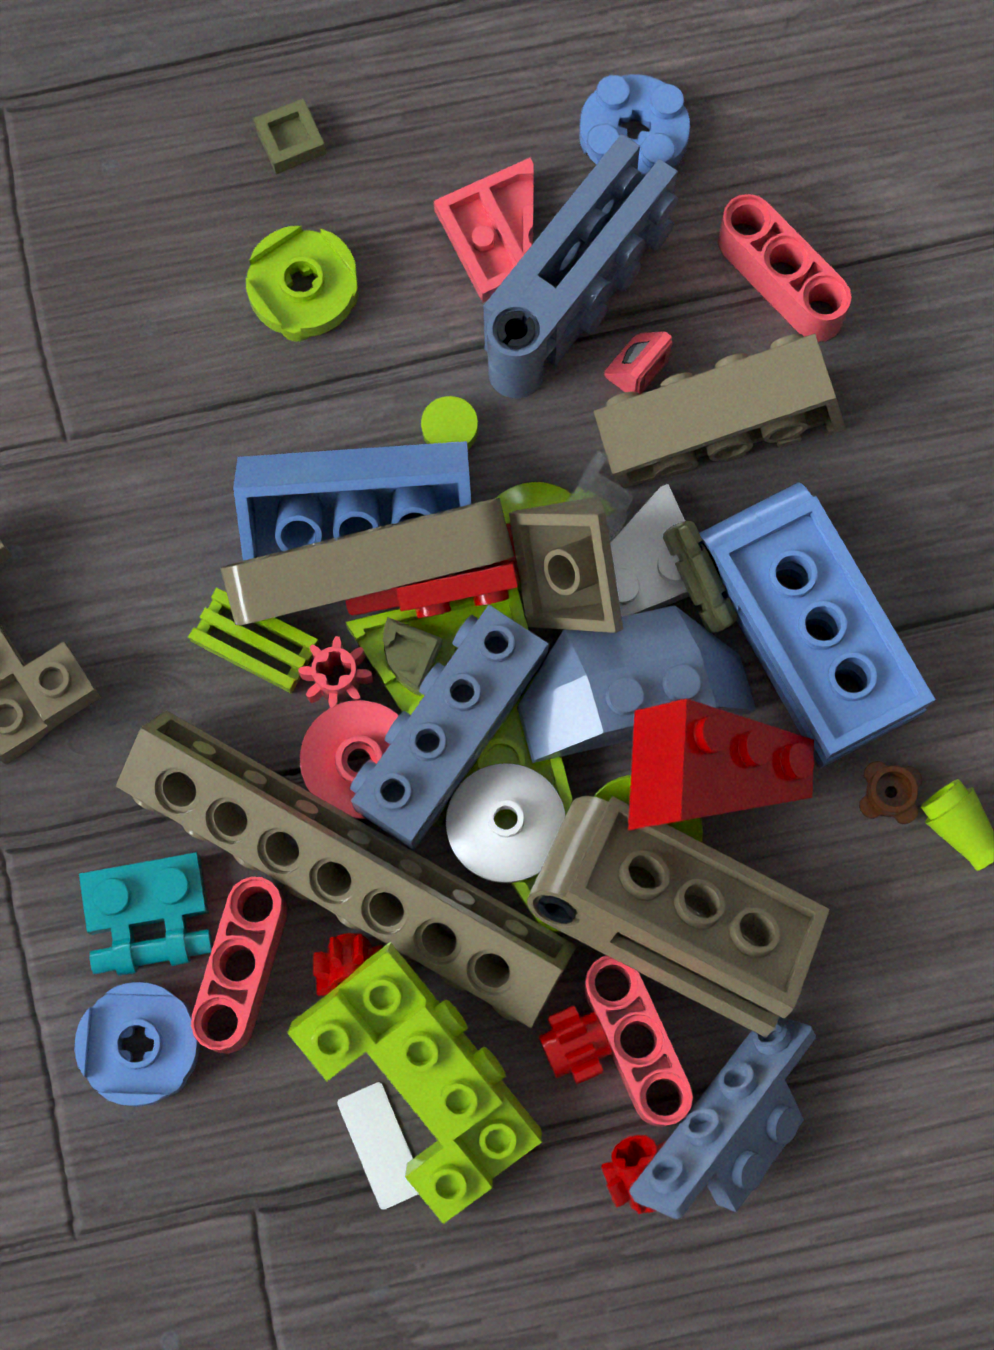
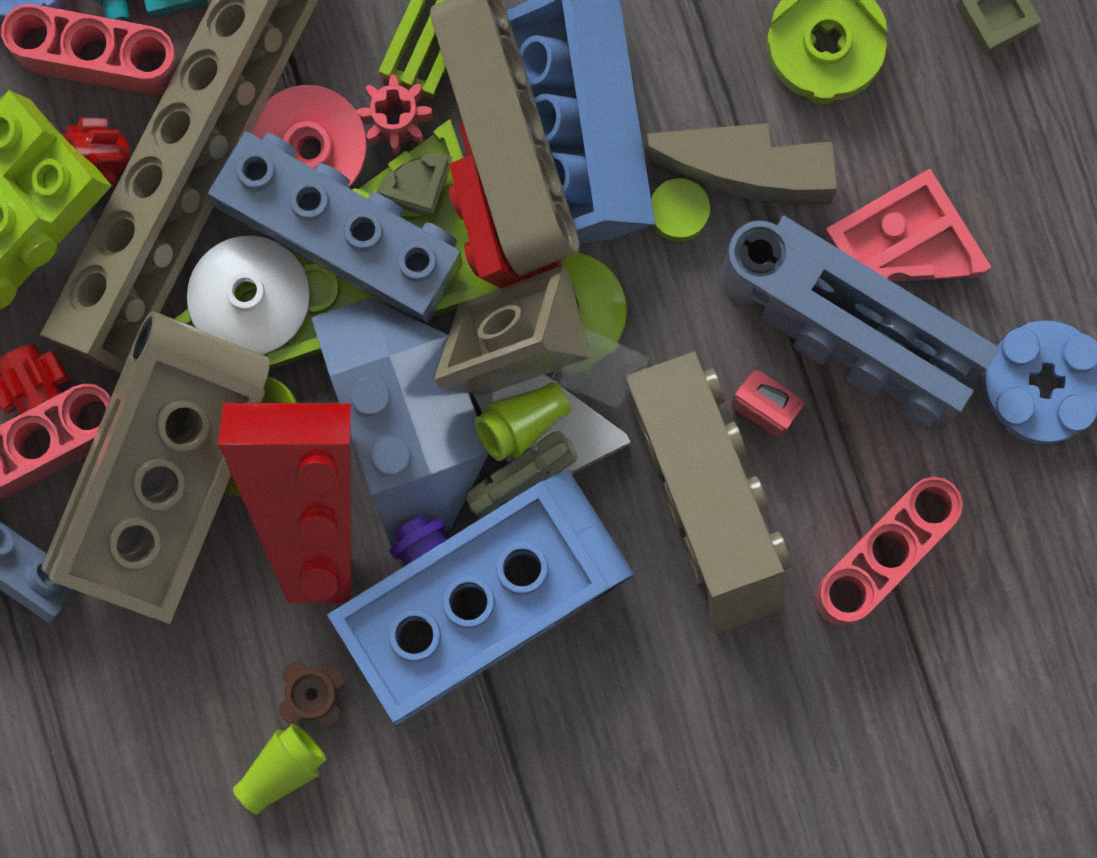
camera: 85 degrees right, 5 degrees up
(414, 355) = (745, 164): none -> dark tan slope
(650, 571) = (519, 421): none -> lime cone
(756, 674) = (417, 538): none -> dark purple plate

